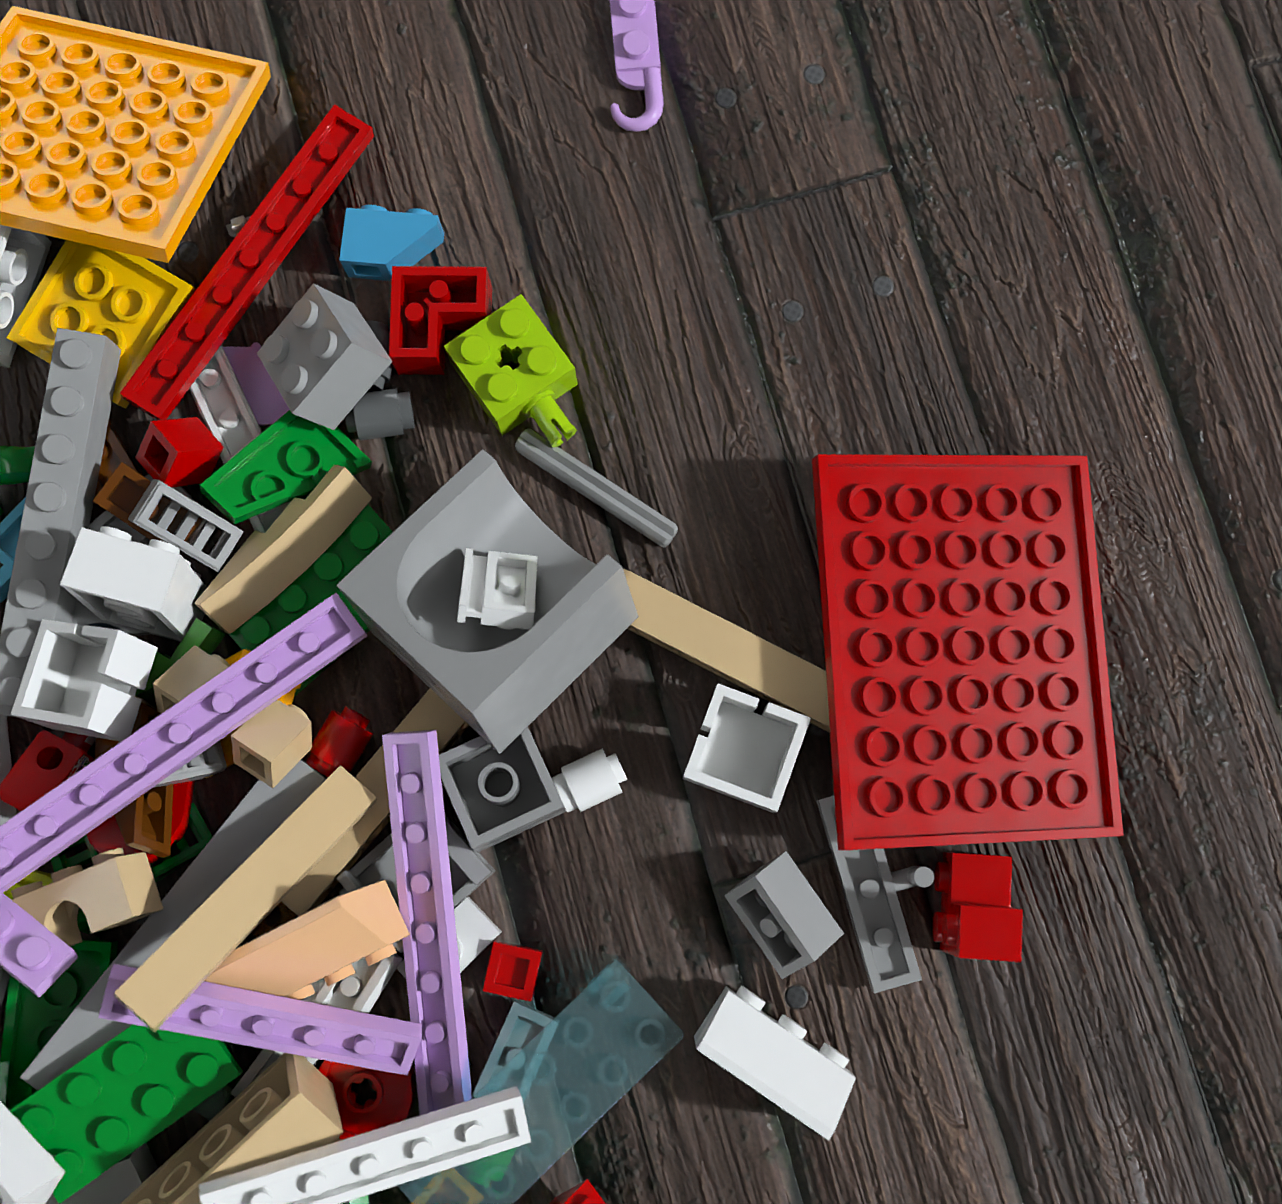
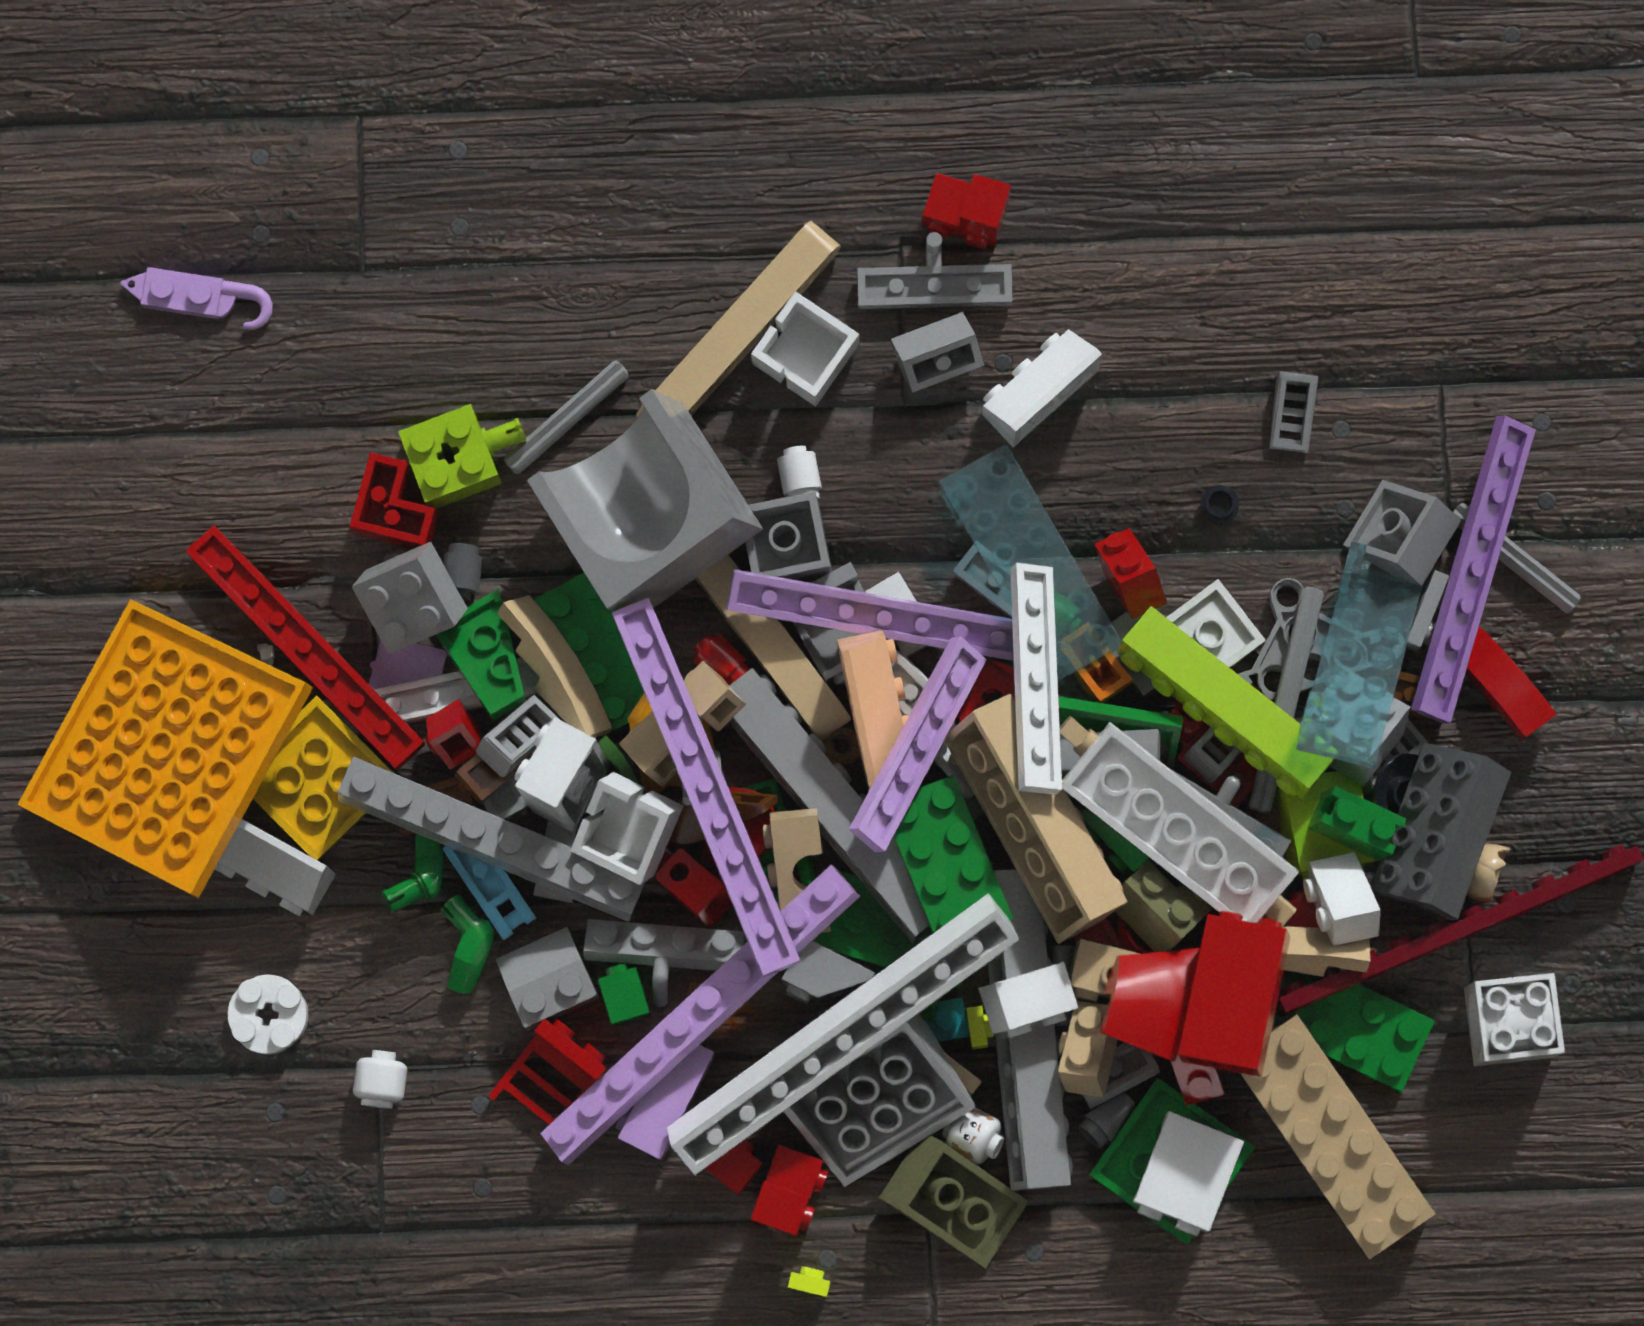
camera: 75 degrees left, 0 degrees up
(244, 899) = (823, 728): tan tile -> none
(382, 239) = (317, 539): dark azure slope -> none
(499, 589) = (639, 491): white plate -> none
(512, 970) = (929, 568): red plate -> none
(964, 650) = (769, 163): red plate -> none

